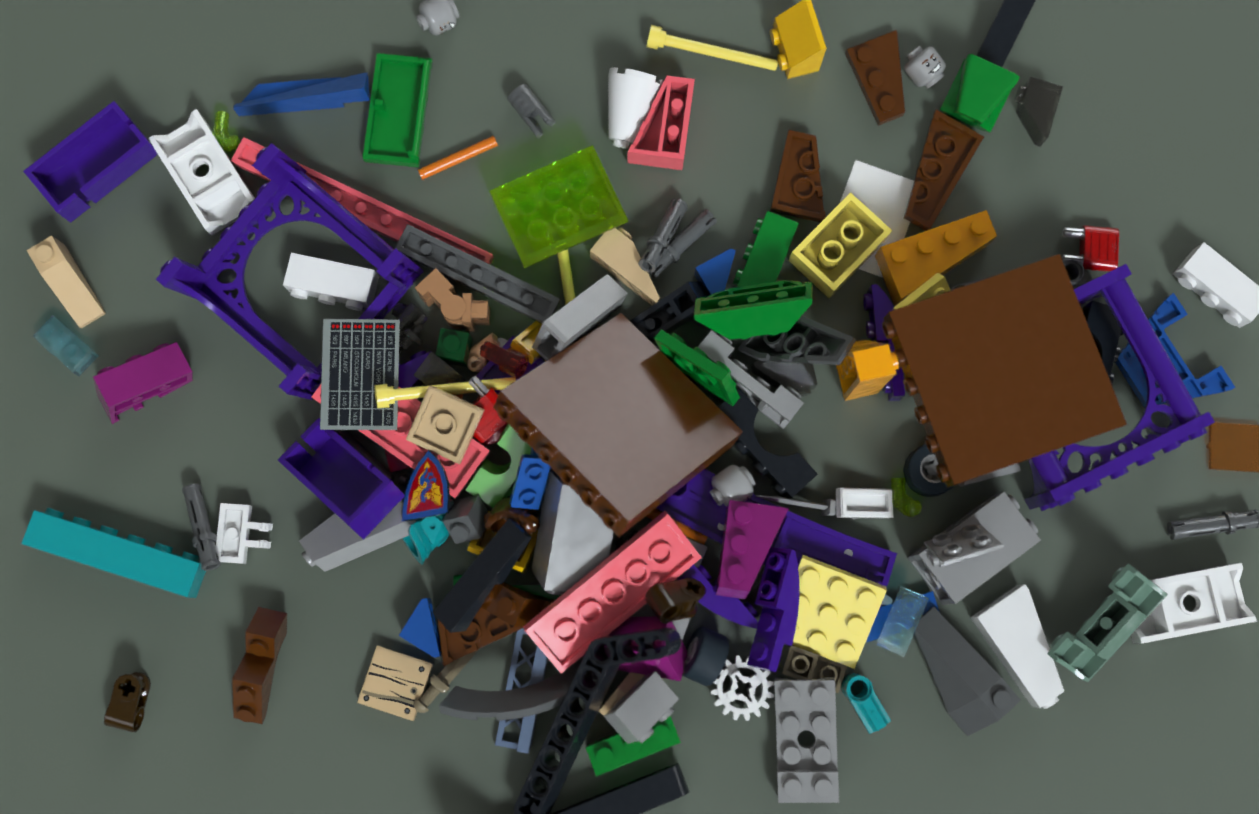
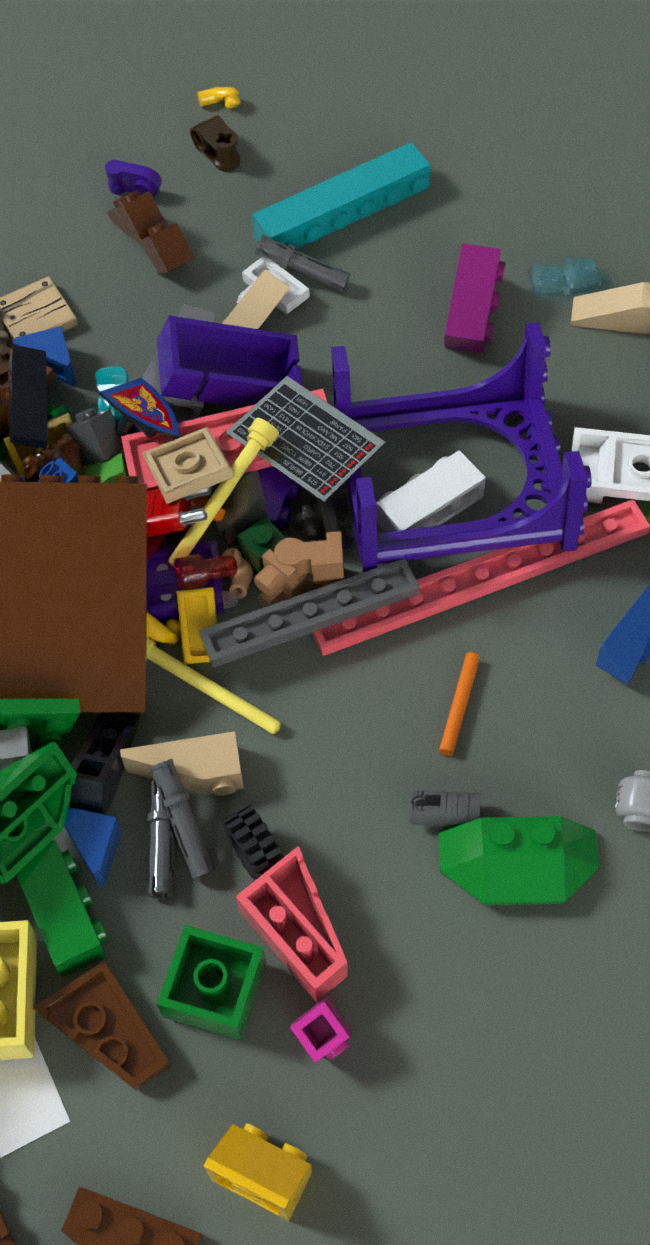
camera: 135 degrees right, 20 degrees down
(72, 751) = (219, 94): none -> yellow arm
(214, 719) = (131, 177): none -> dark purple plate
(273, 525) = (258, 302): none -> tan sticker
(397, 110) = (563, 683): green container -> none
(529, 52) = (519, 859): none -> green wedge
(558, 206) = (307, 741): clear neon green slope -> none
(579, 317) = (172, 661): light grey slope -> none
(629, 103) = (362, 912): white cone -> none
(643, 184) = (251, 841): none -> black tyre
(659, 38) = (411, 1017): light yellow piece -> none
(707, 68) = (322, 1030): none -> dark pink brick
(733, 140) = (212, 982): none -> green brick

